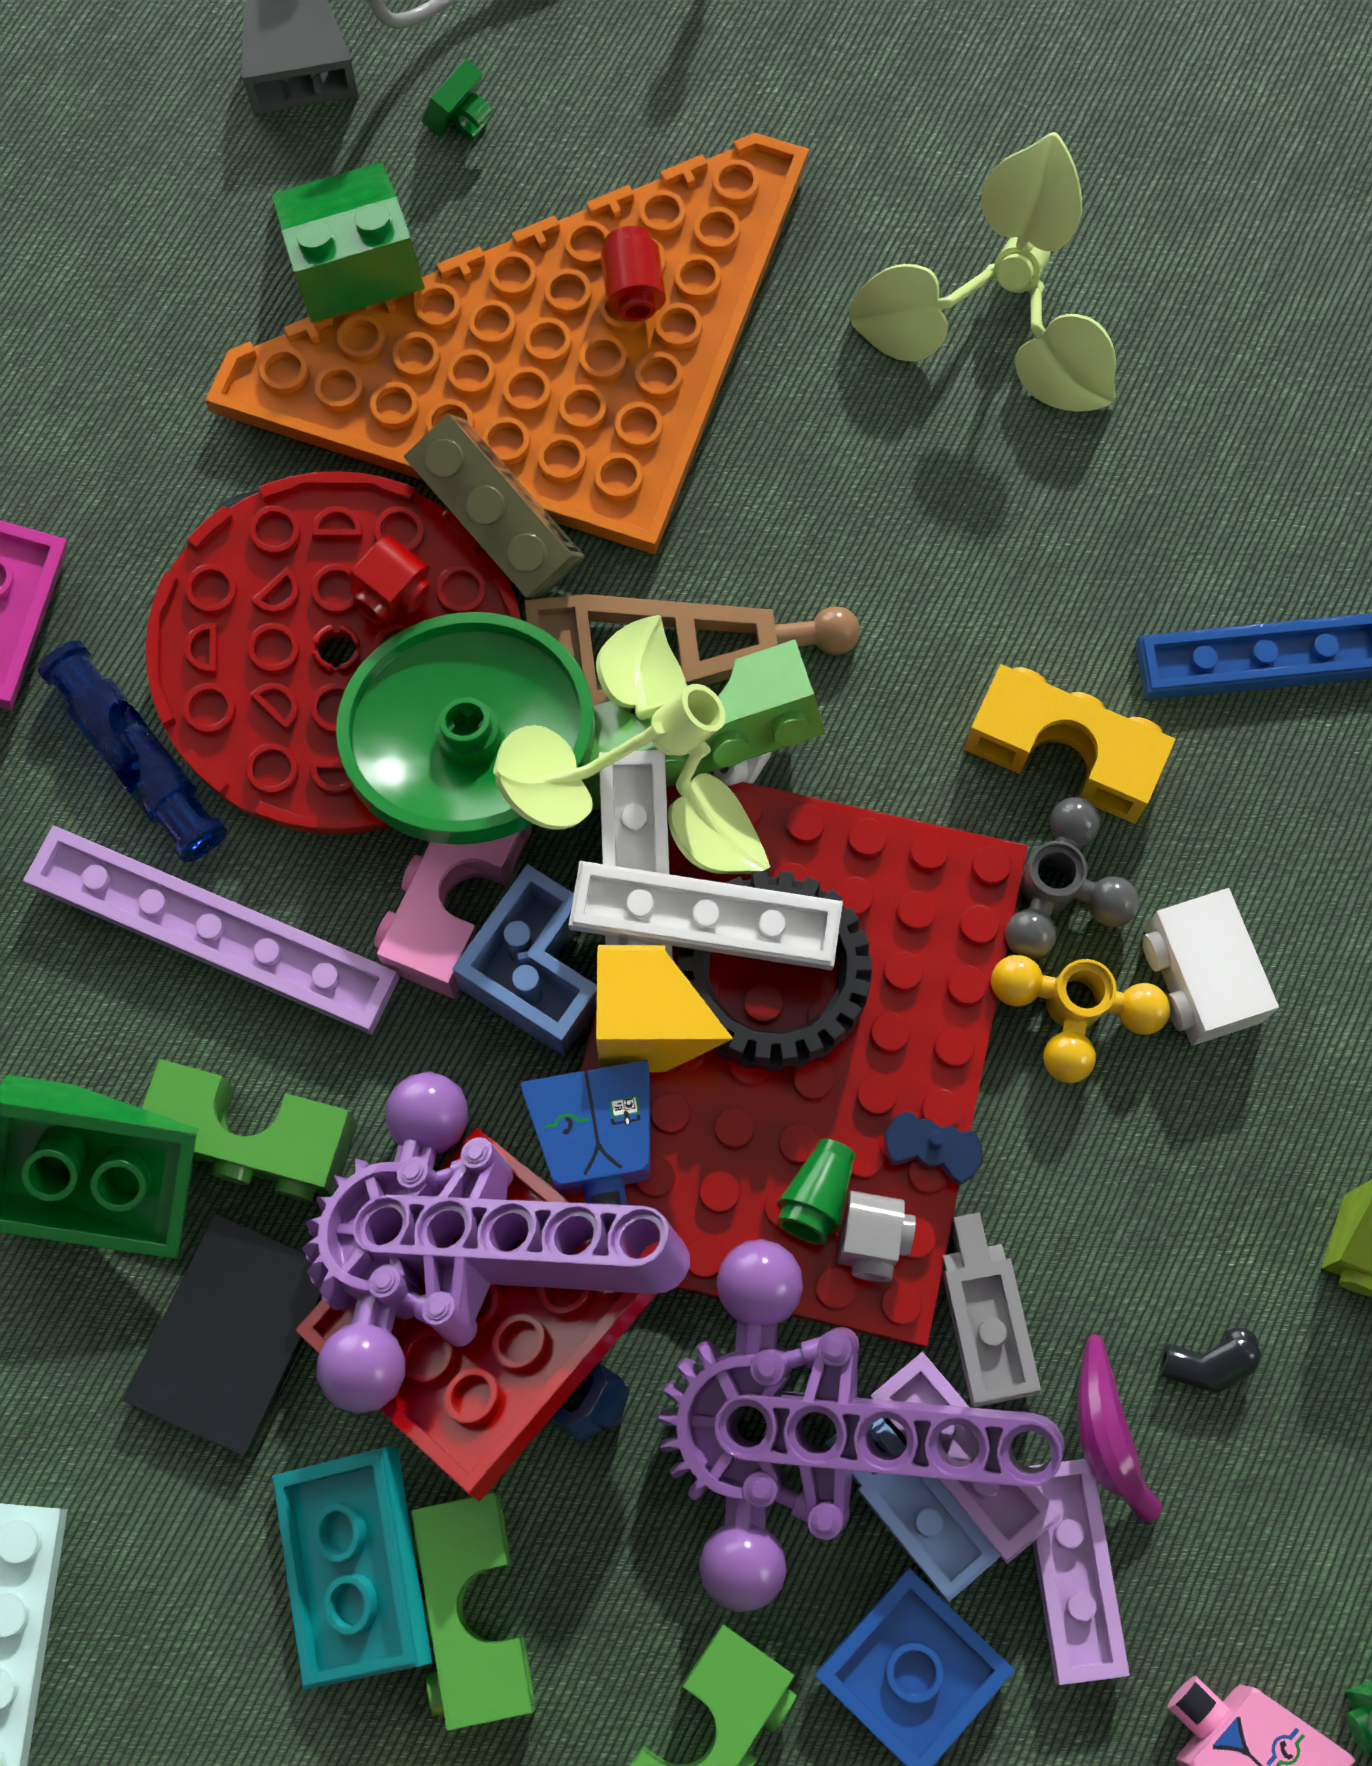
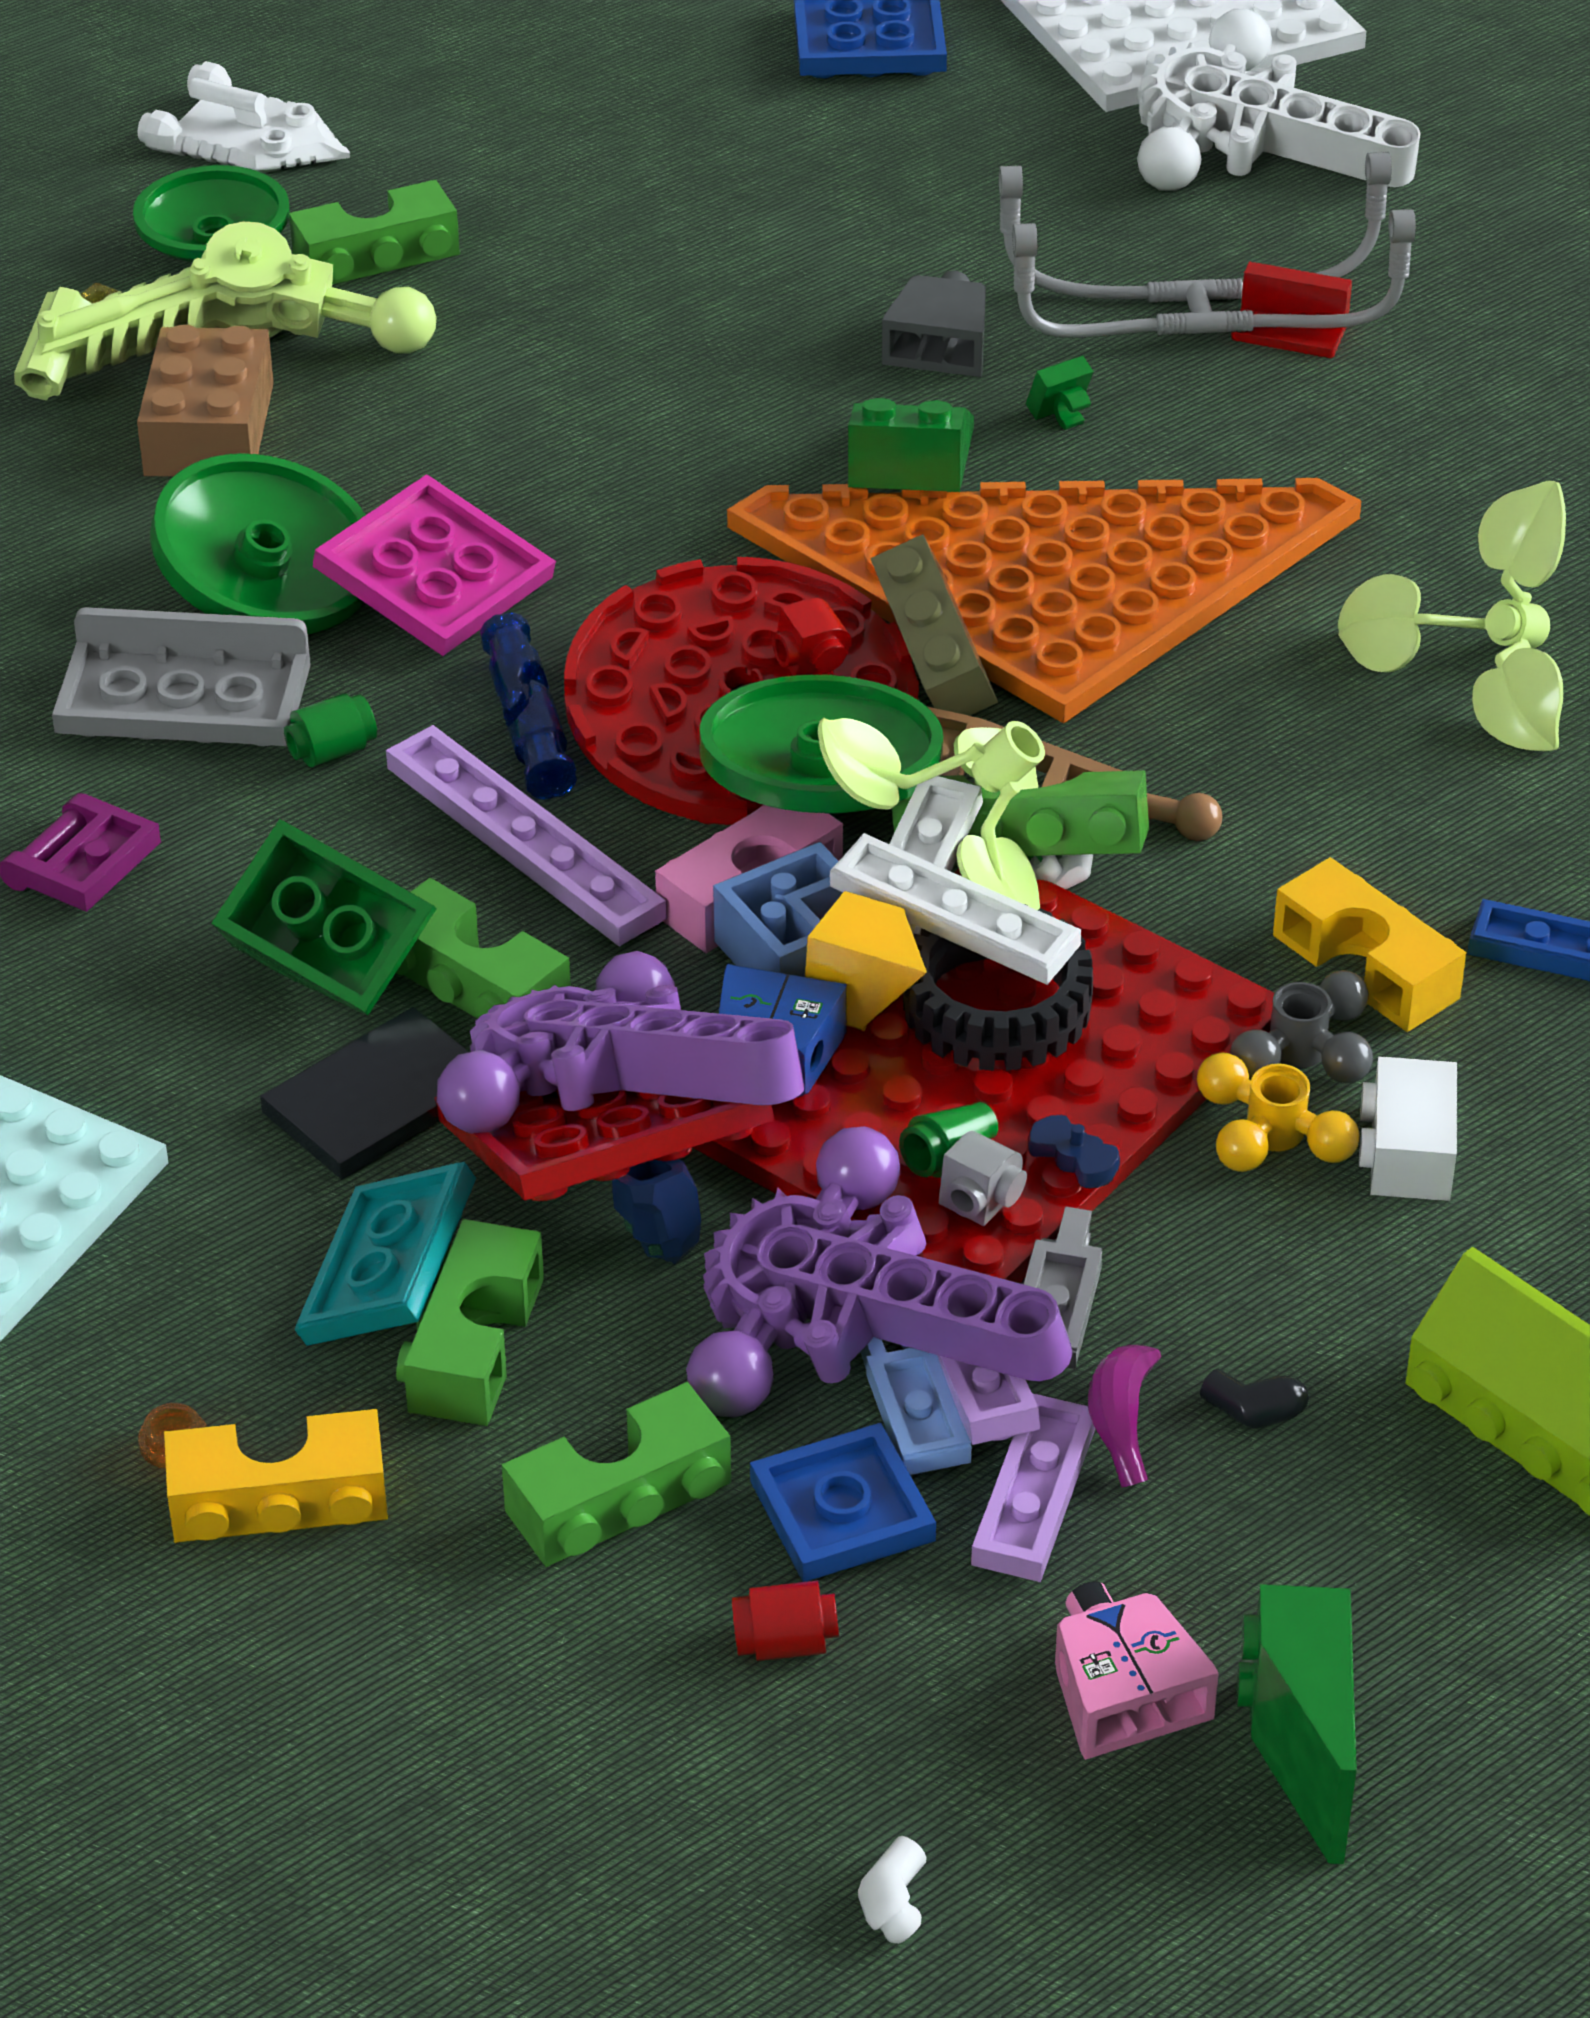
camera: 25 degrees right, 30 degrees down
(632, 274) = (1146, 522): red brick -> none

